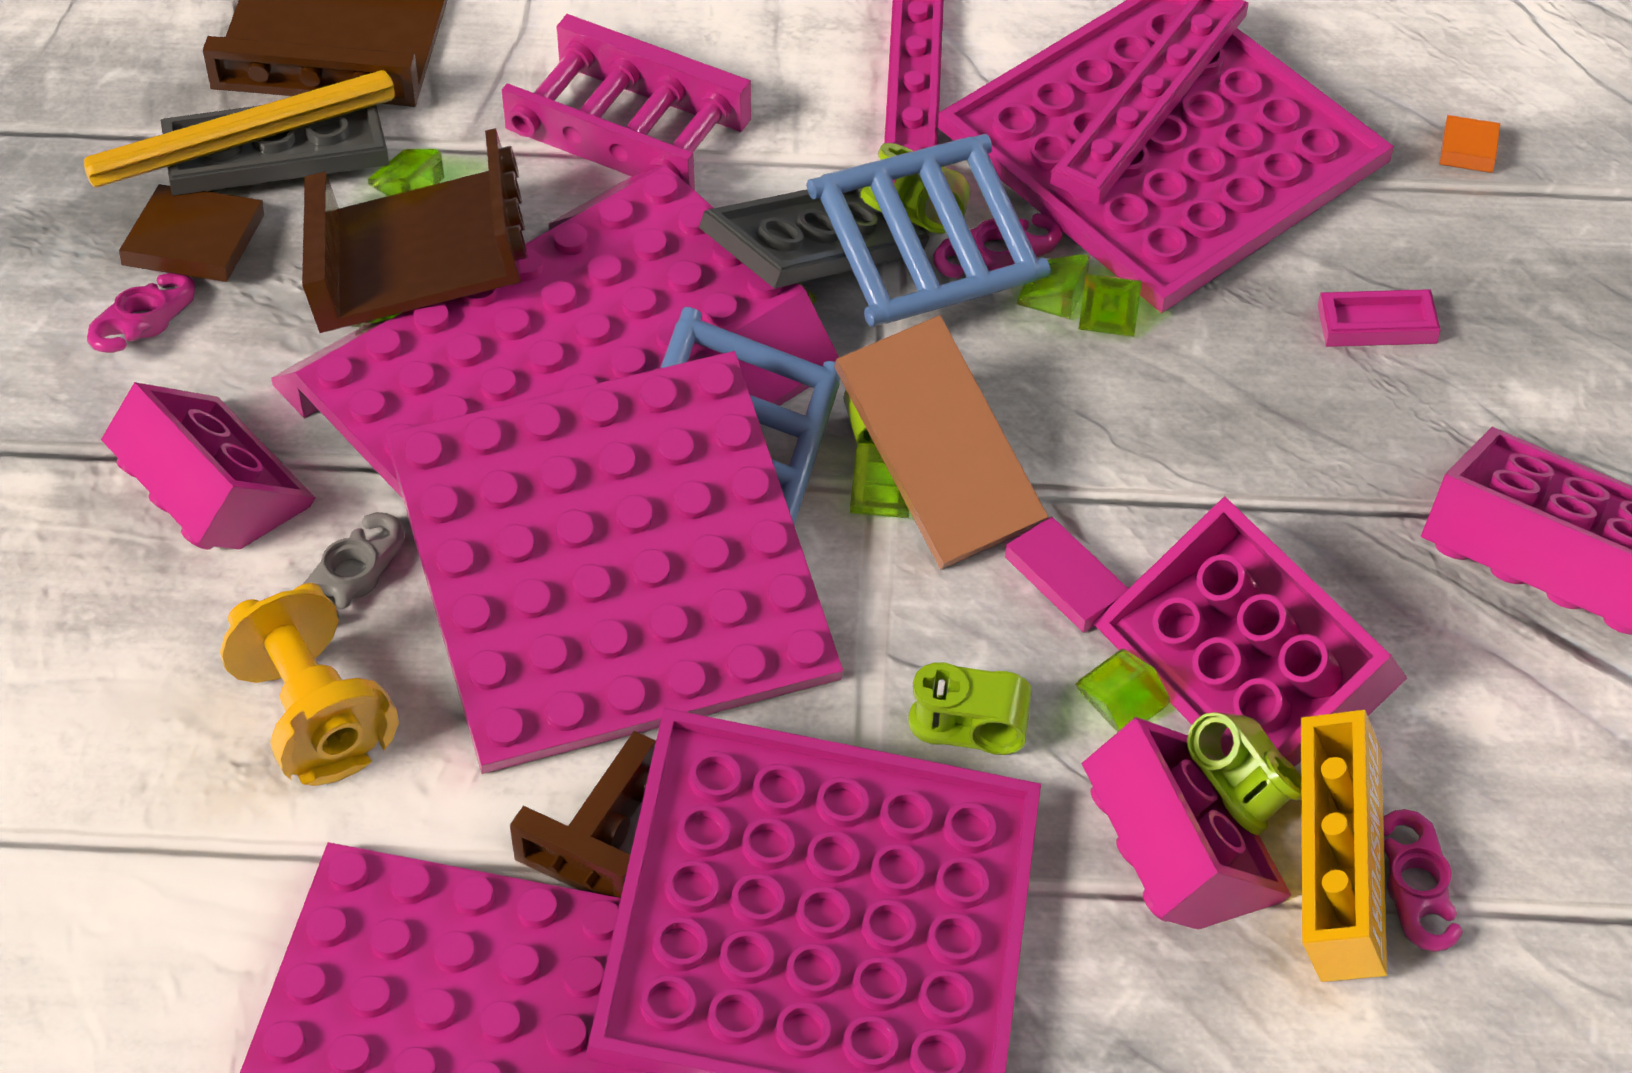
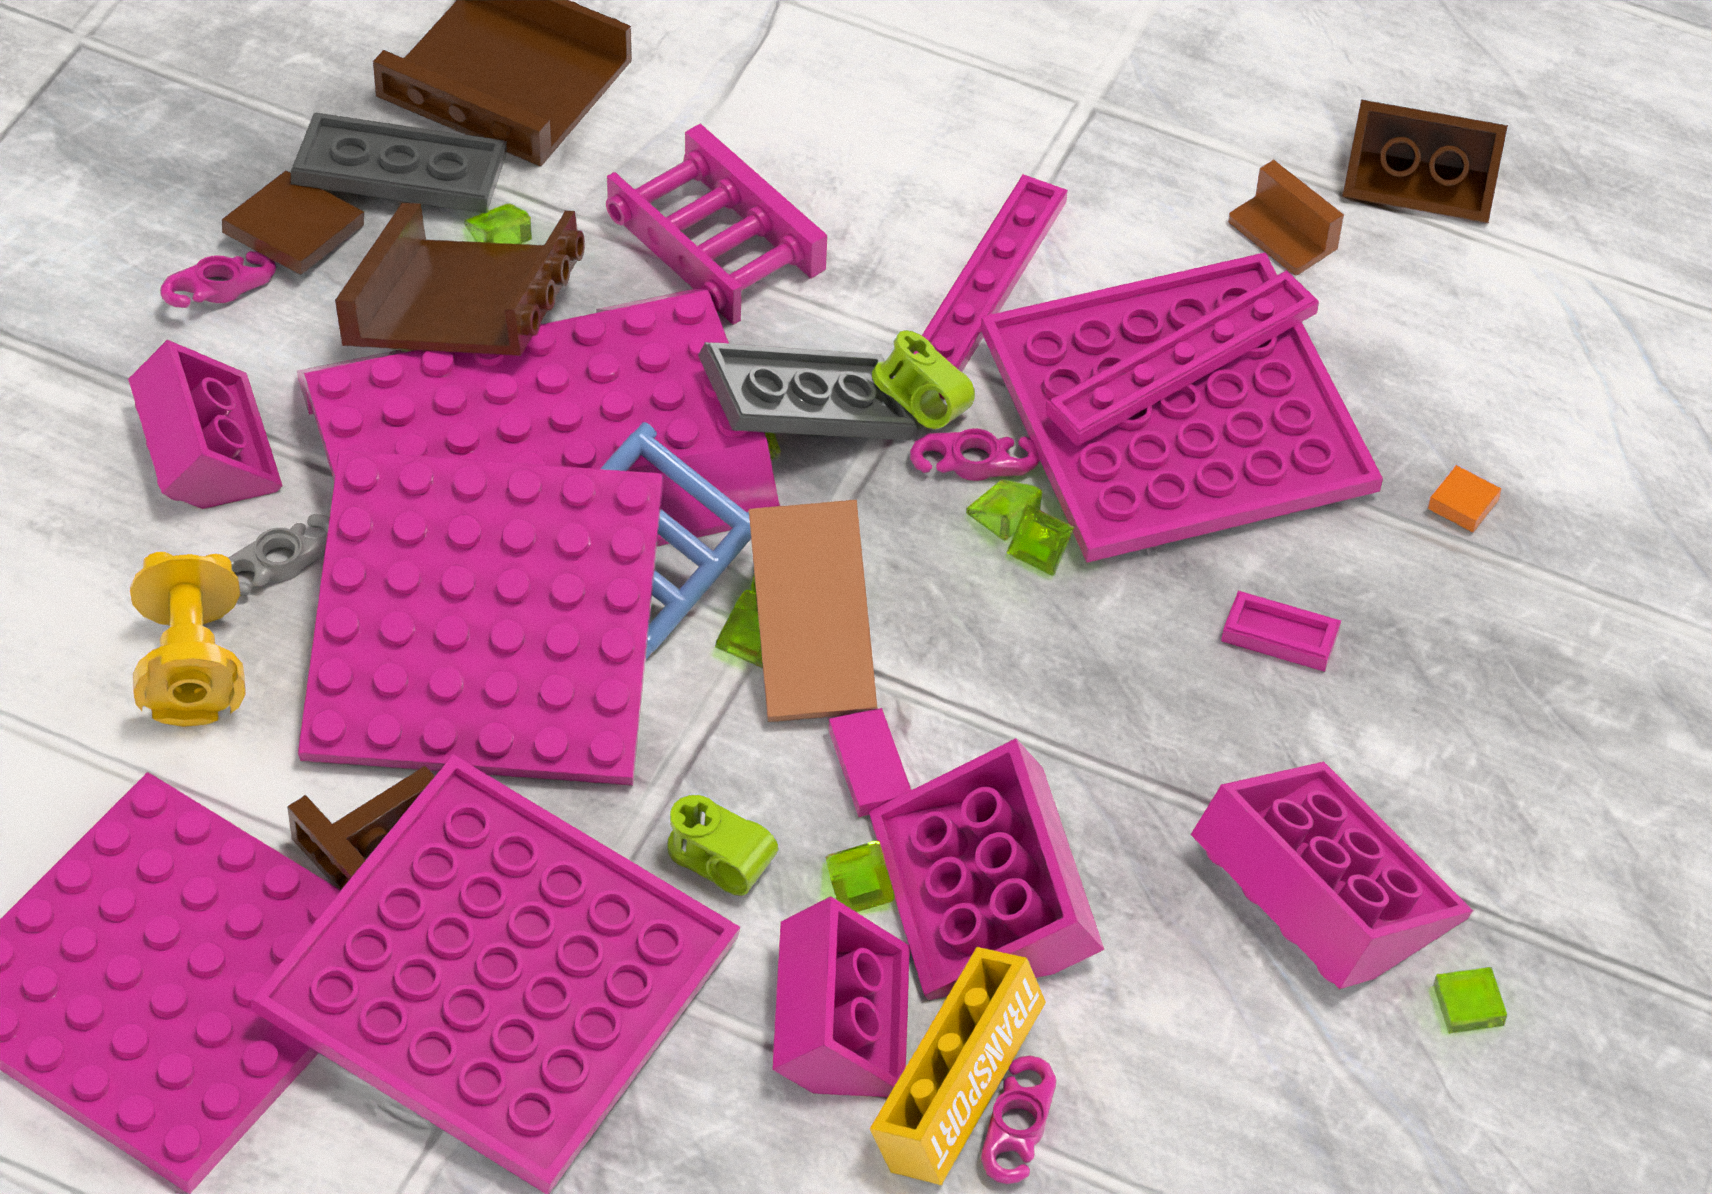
camera: 20 degrees right, 0 degrees up
(238, 128) = (370, 142): yellow axle -> none
(930, 293) = (879, 478): medium blue bar -> none
(1252, 777) = (912, 968): lime piece -> none

